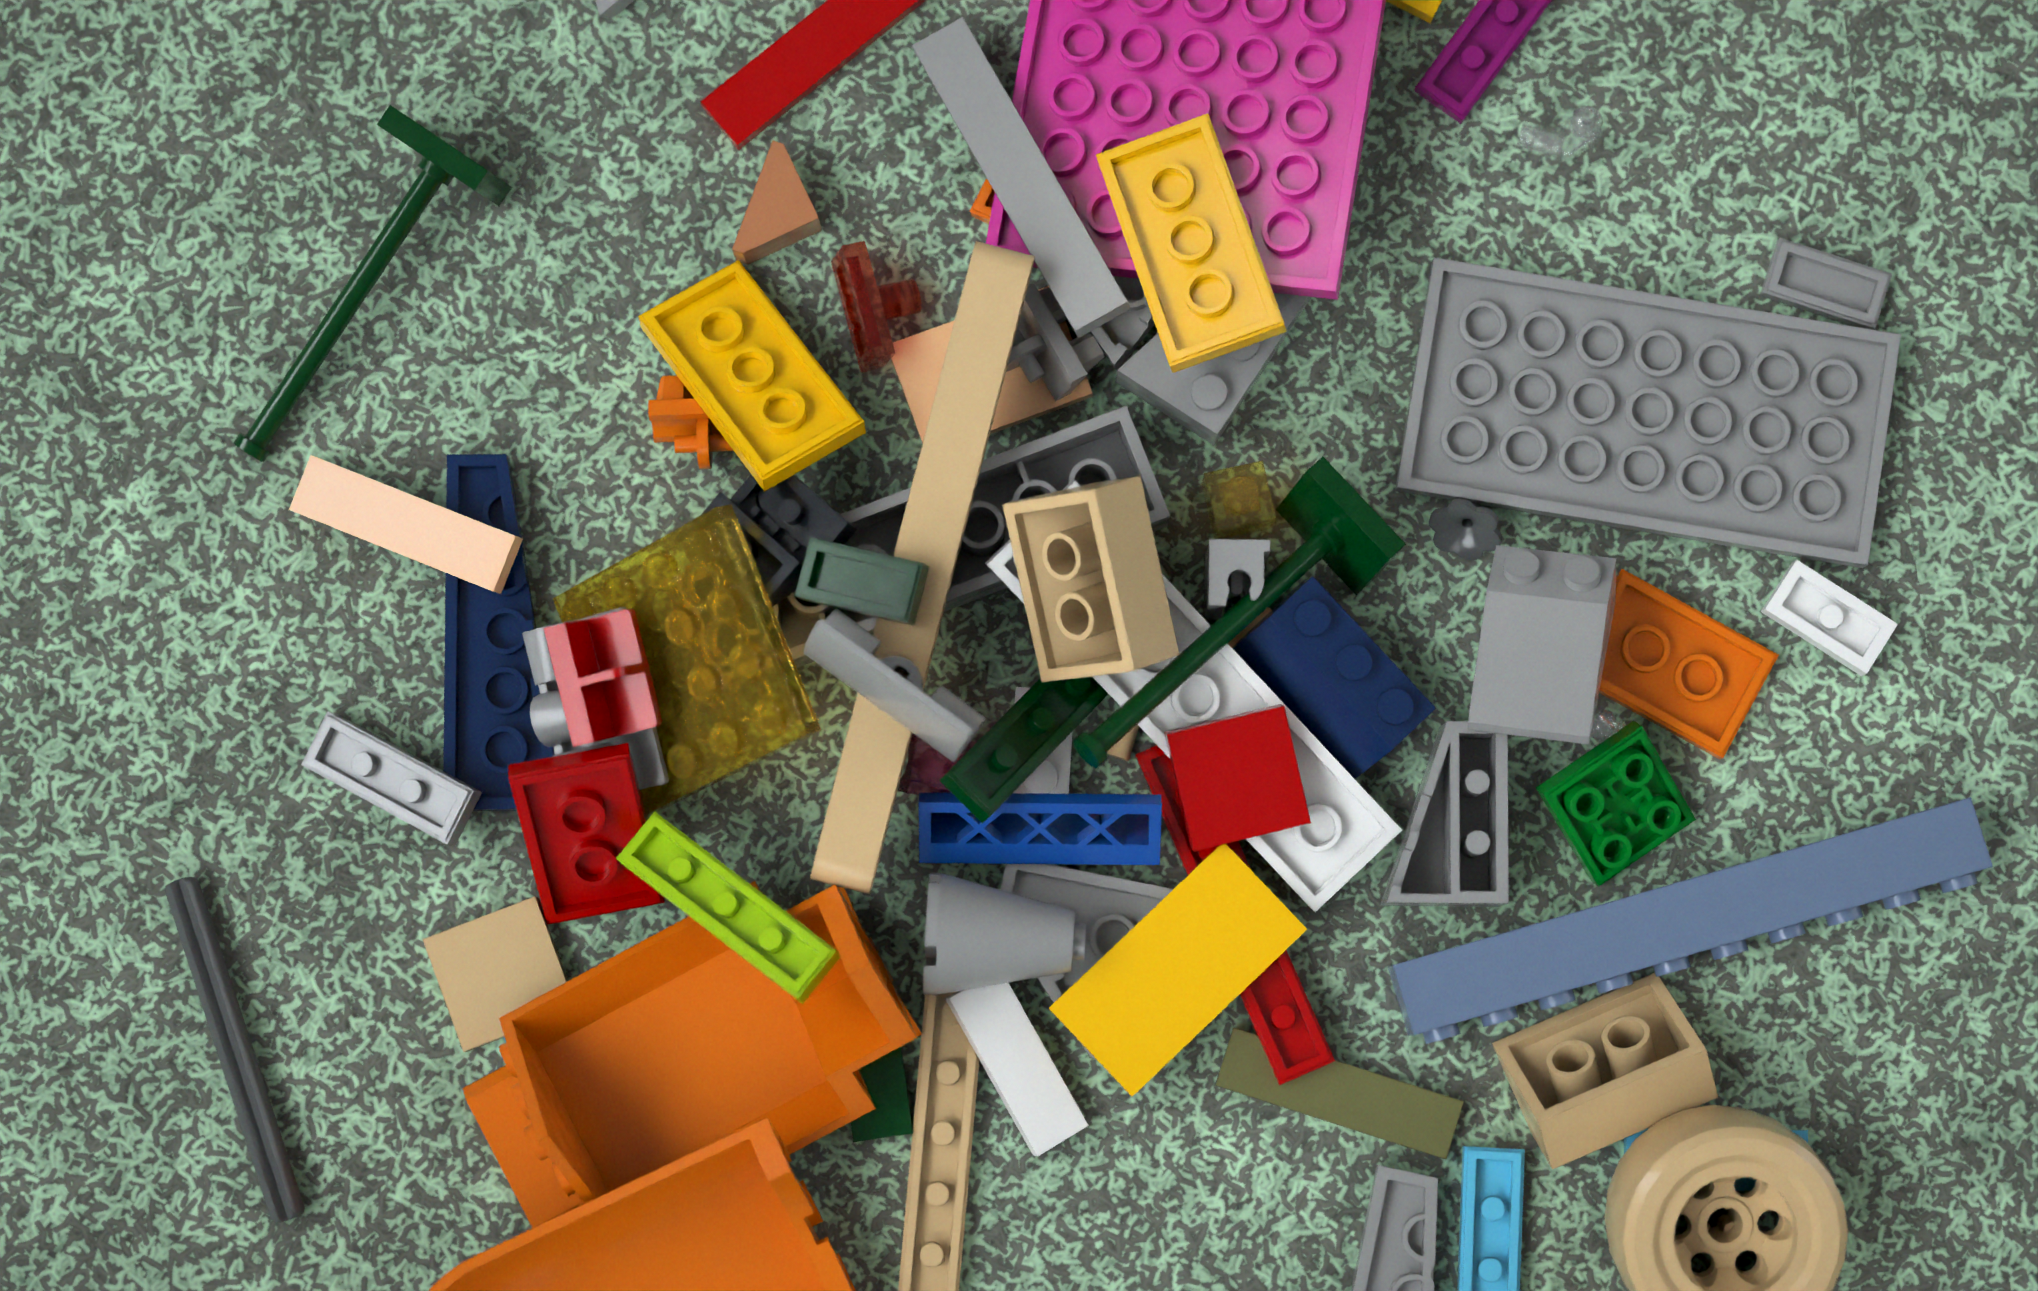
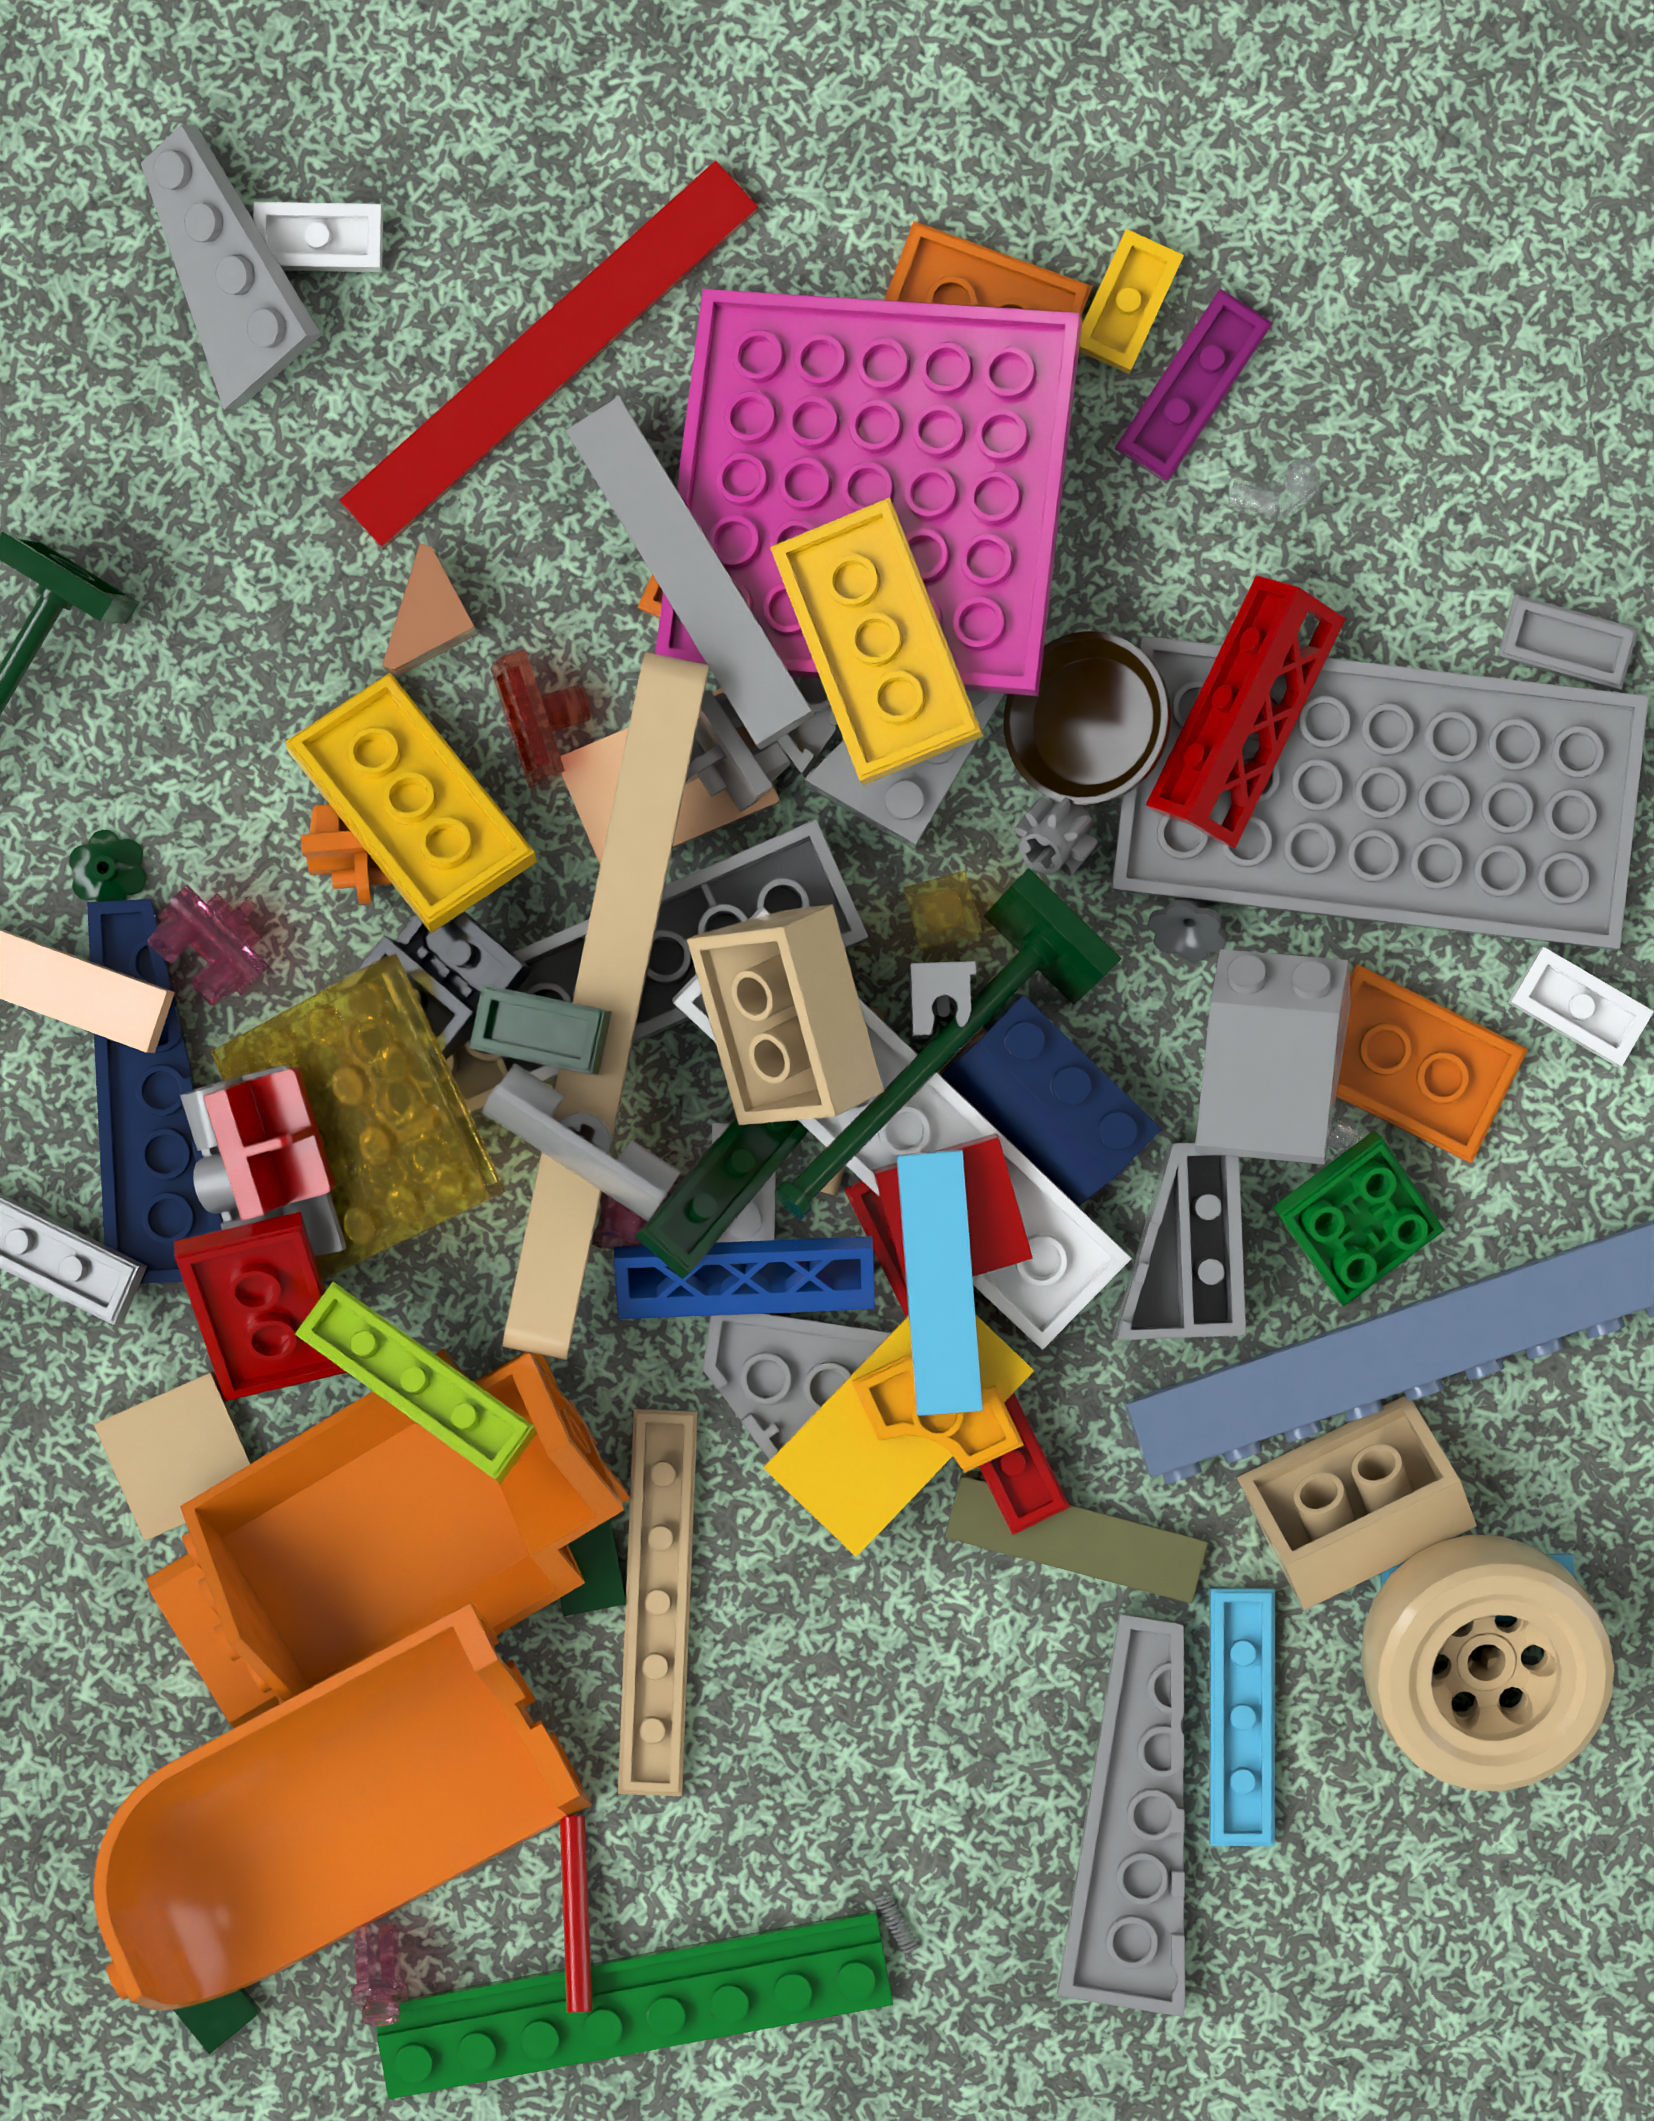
camera: 10 degrees left, 5 degrees up
(481, 434) = (124, 872): none -> dark green plant
(566, 493) = (218, 936): none -> clear pink hips
(993, 937) = (700, 1396): light grey cone -> none
(1018, 1065) = (732, 1523): white tile -> none
(1188, 952) = (969, 1436): none -> light orange tile
(1223, 838) = (939, 1282): none -> medium azure tile
(1347, 435) = (1055, 836): none -> light grey gear
(1385, 331) = (1094, 722): none -> dark brown piece
(1521, 319) = (1238, 703): none -> red fence

